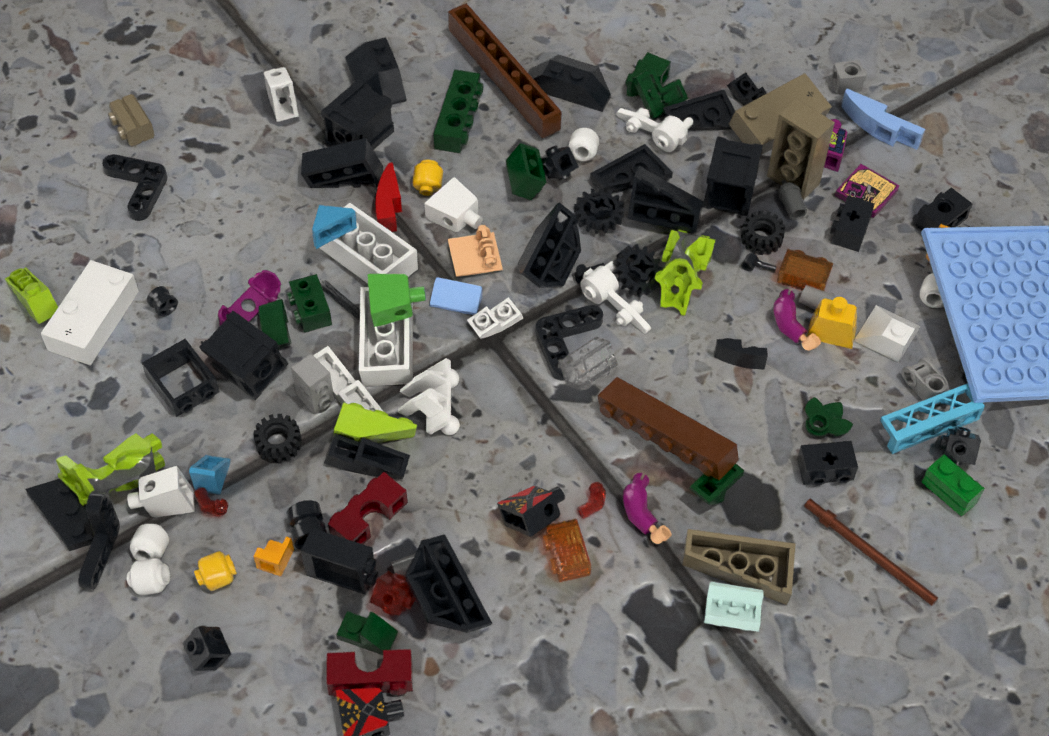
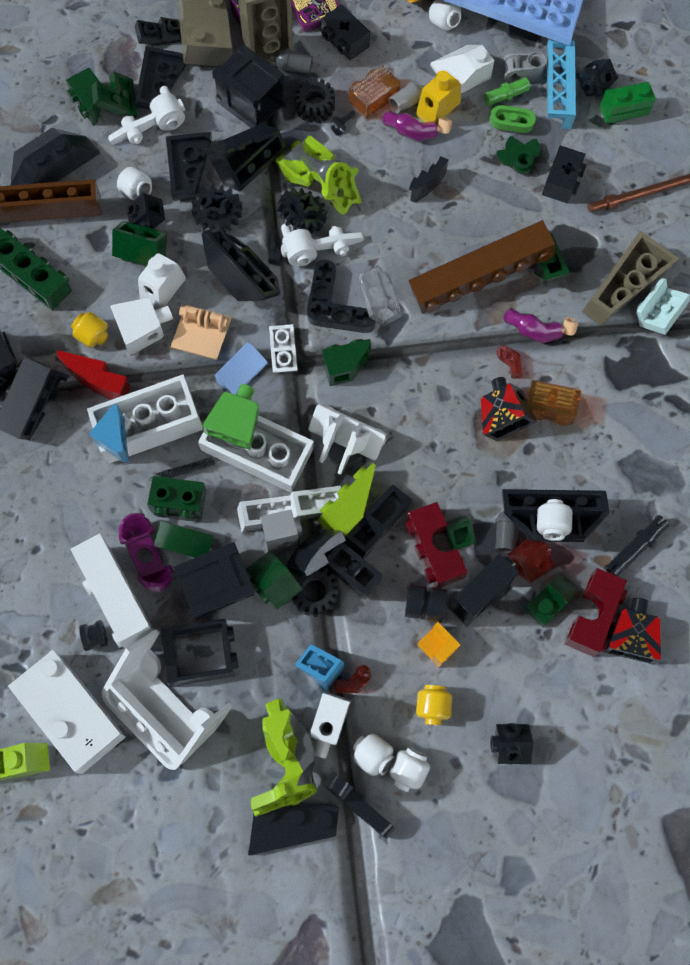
camera: 65 degrees left, 15 degrees up
(120, 367) = (153, 710): none -> white windscreen
(200, 293) = (112, 591): none -> white brick
(266, 396) = (273, 580): none -> dark green brick
(304, 416) = (310, 553): none -> black slope
(307, 454) = (353, 570): none -> black brick
(393, 530) = (460, 533): none -> dark green slope
(428, 579) = (554, 520): none -> white head
(467, 688) = (643, 539): none -> black pin
(501, 200) = (162, 278): none -> white torso
(509, 368) = (345, 361): none -> dark green slope
(862, 397) = (512, 119): none -> bright green plate
(888, 378) = (506, 91): none -> bright green pin

